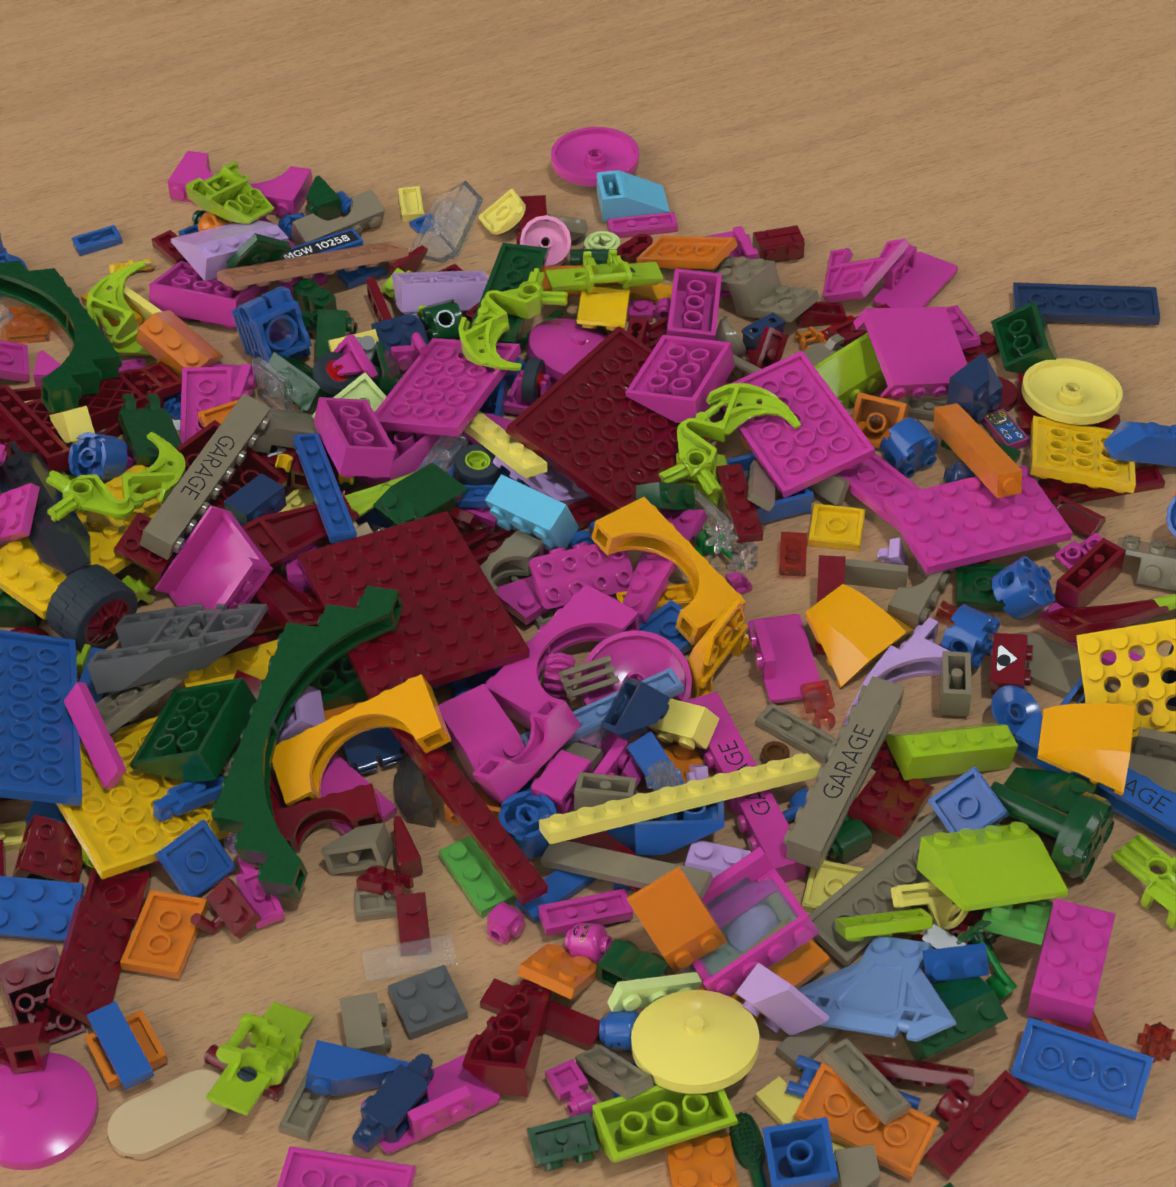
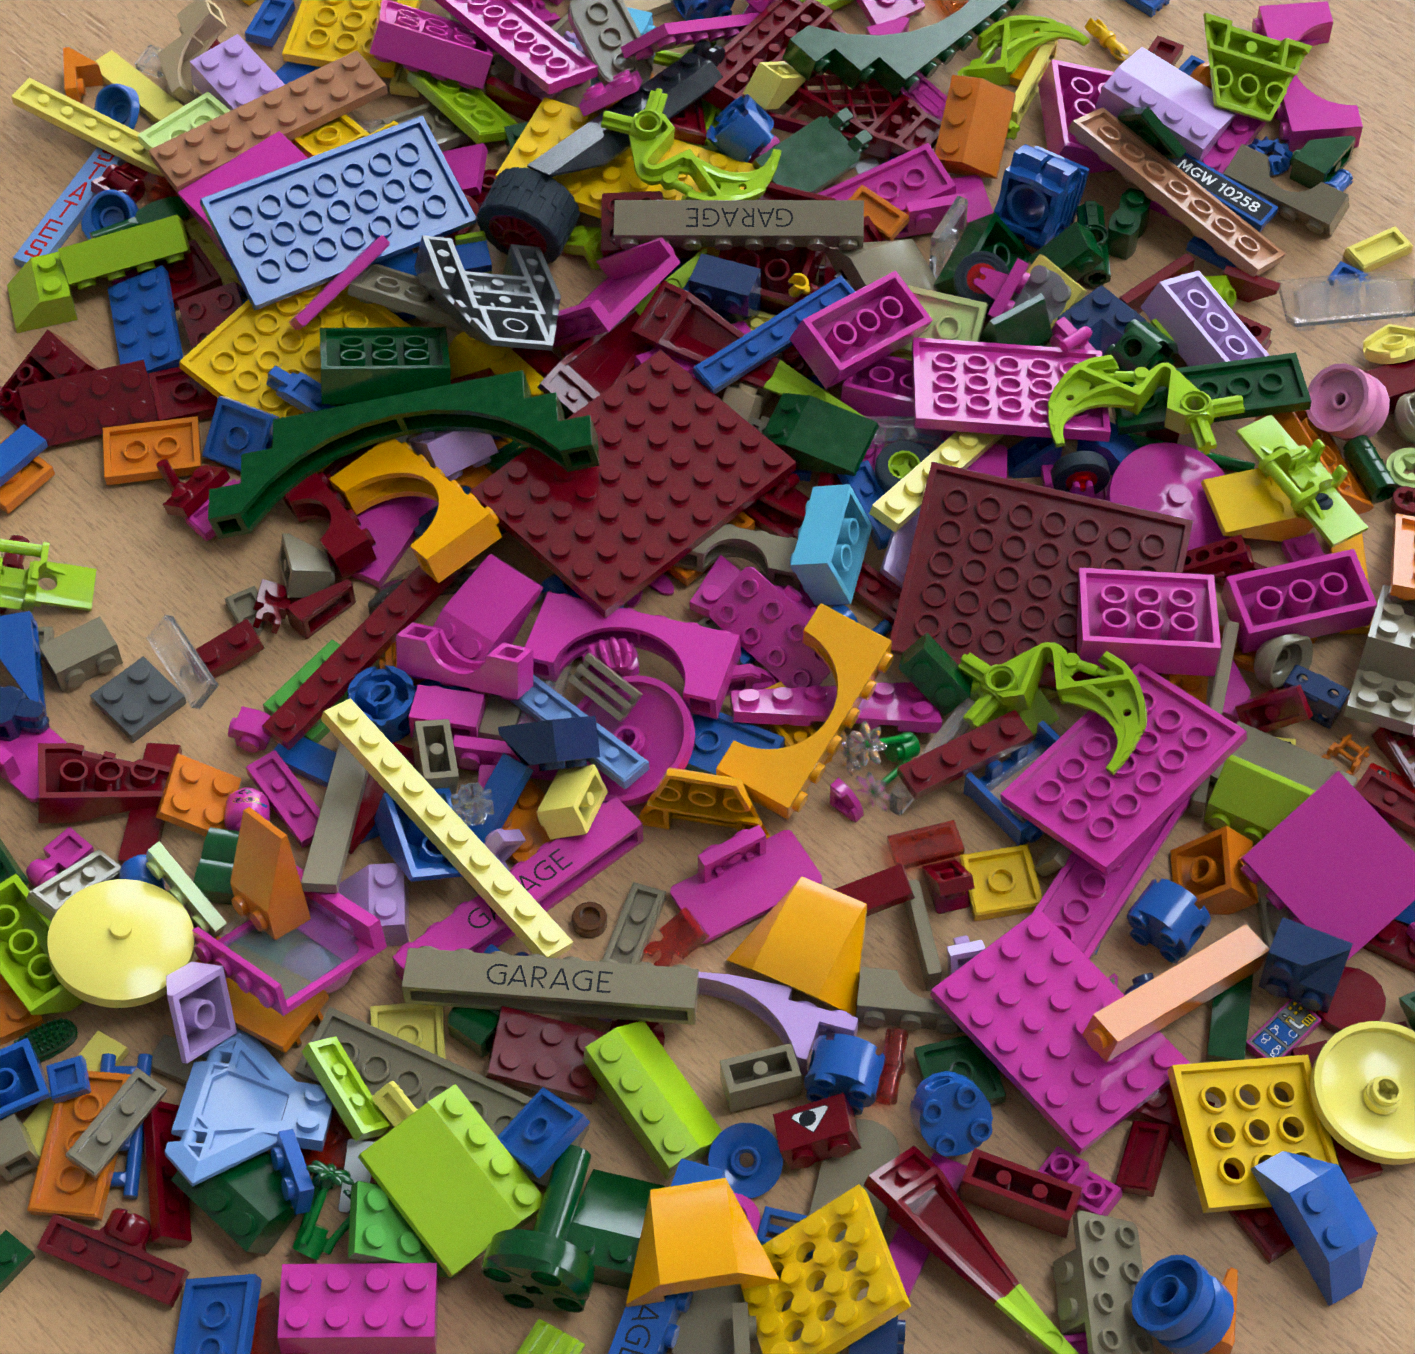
camera: 70 degrees right, 10 degrees up
(761, 487) = (994, 769): dark tan tile -> none
(809, 1105) = (68, 1079): none -> blue tile
(831, 544) = (948, 885): none -> dark red slope

